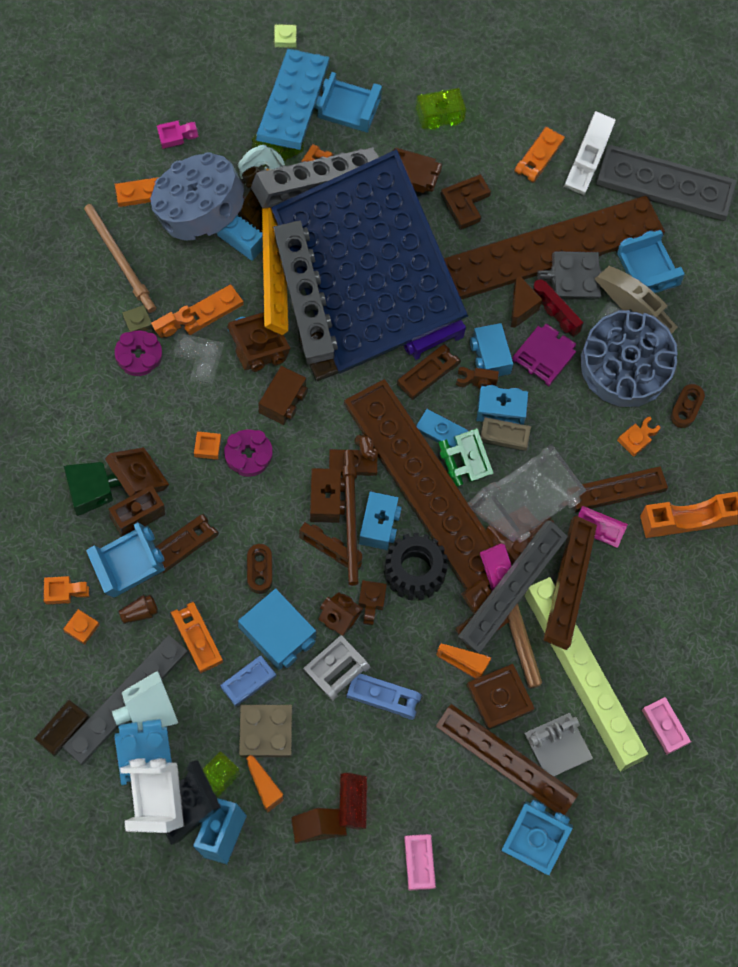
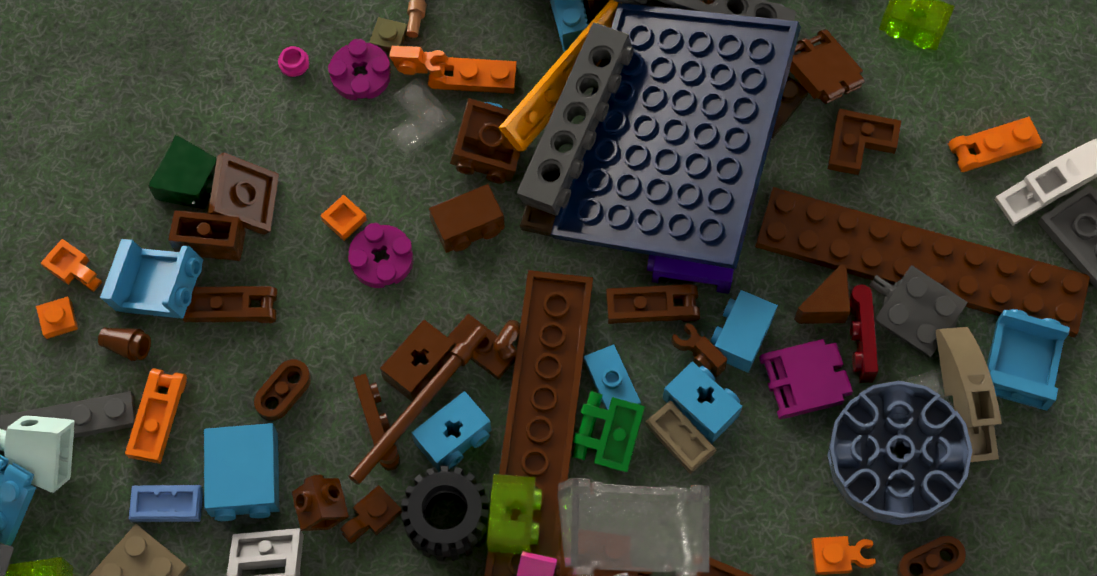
camera: 45 degrees right, 0 degrees up
(91, 374) = (293, 61): none -> dark pink plate
(458, 551) = (508, 494): none -> clear neon green brick

